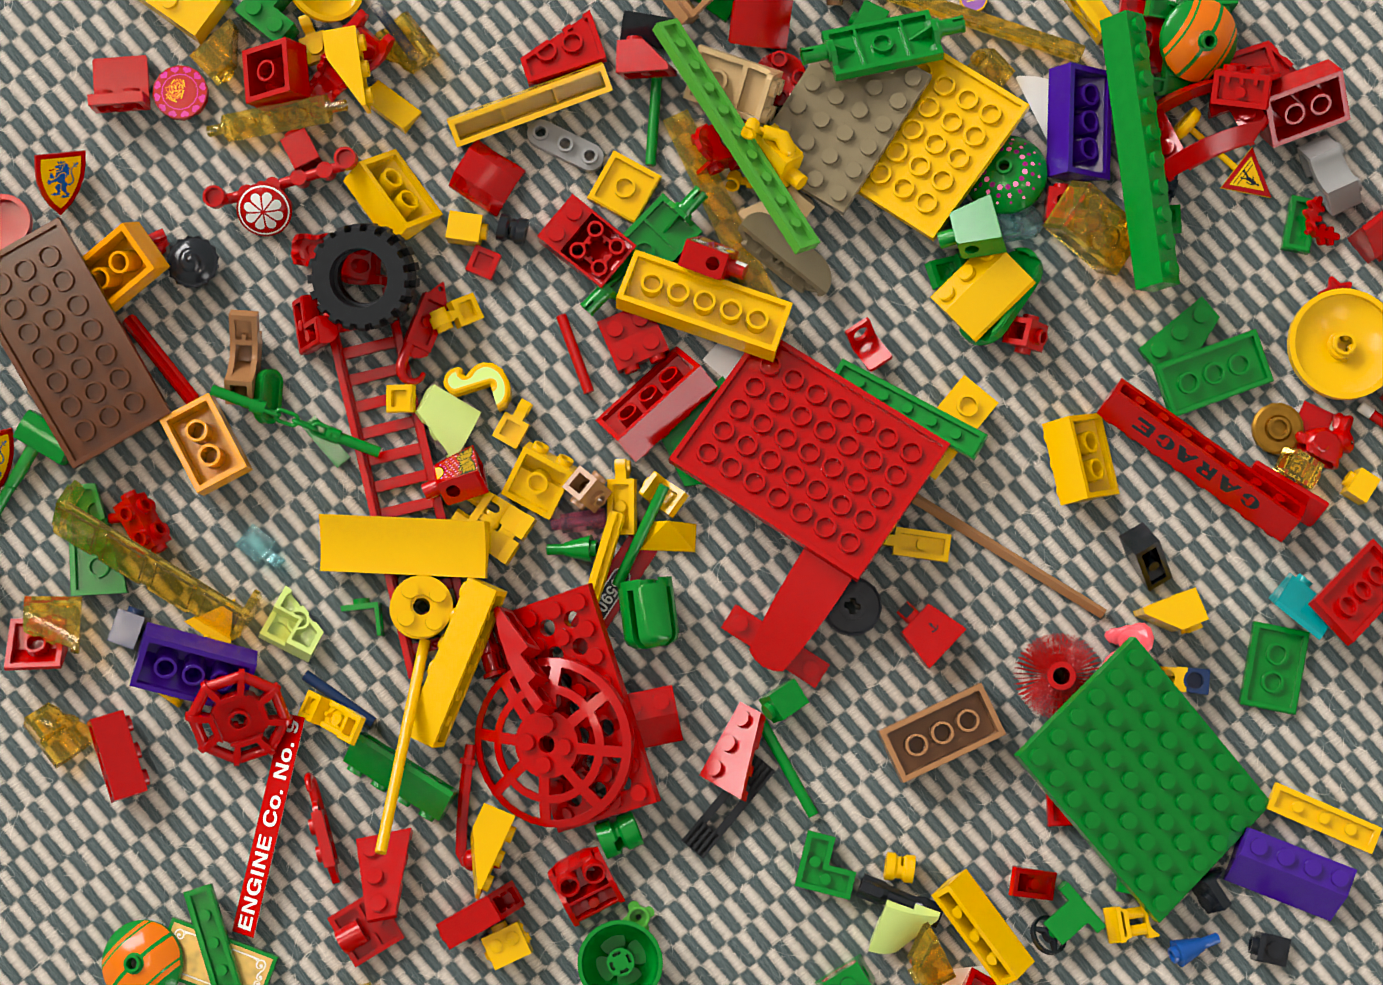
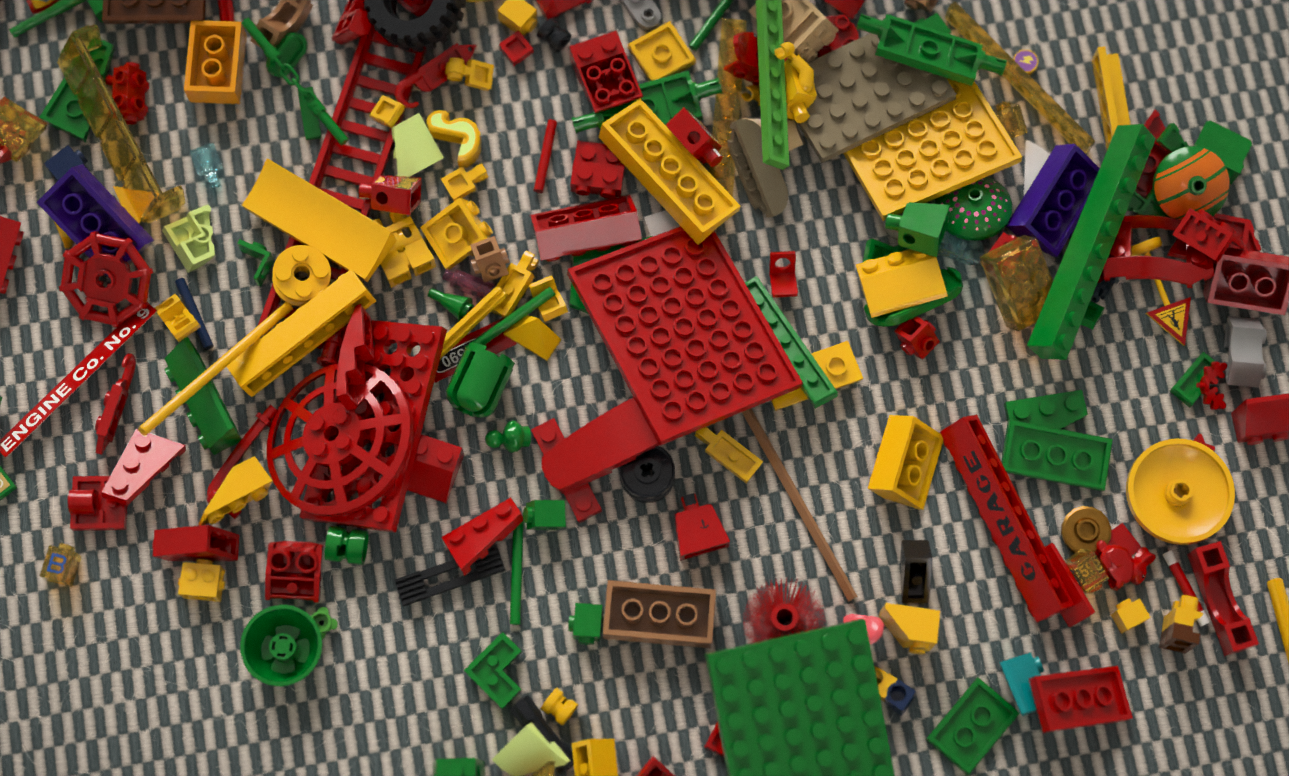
camera: 25 degrees right, 10 degrees down
(709, 644) = (513, 437): none -> green animal
(879, 778) = (586, 623): none -> green brick

